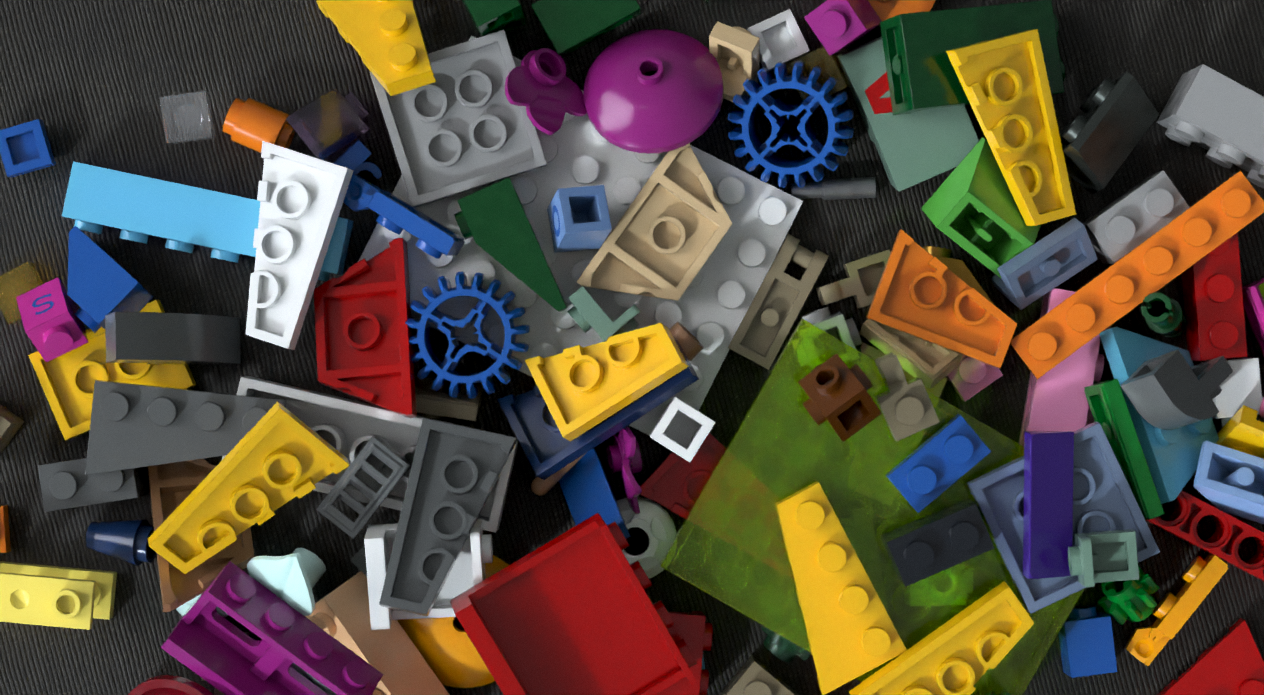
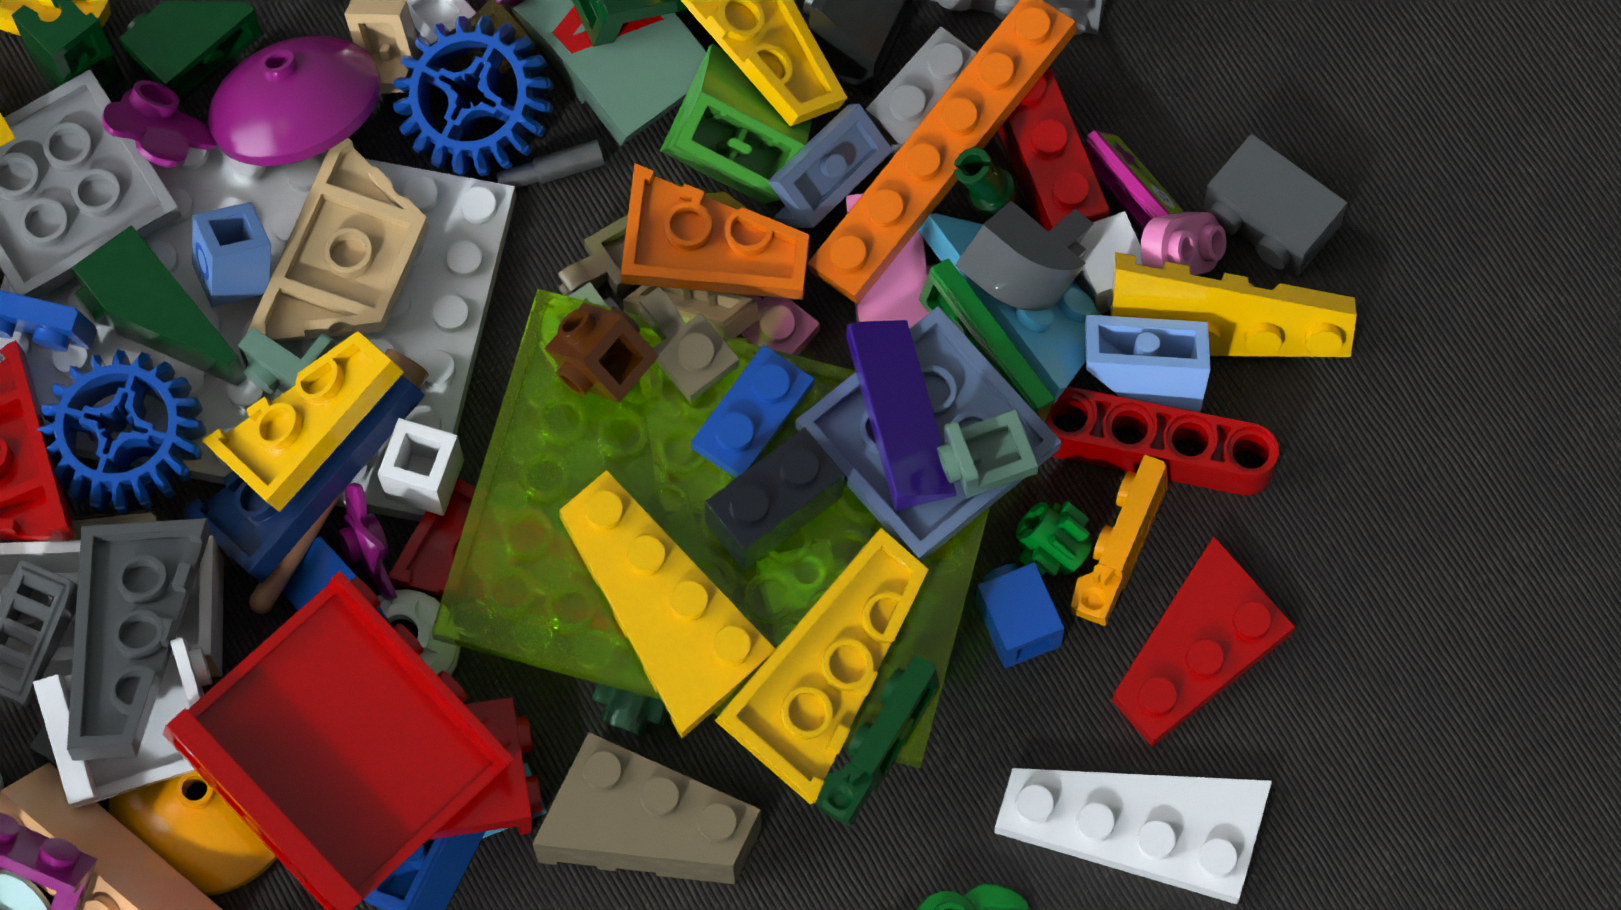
camera: 10 degrees left, 20 degrees down
(777, 303) = (508, 307): dark tan plate -> none

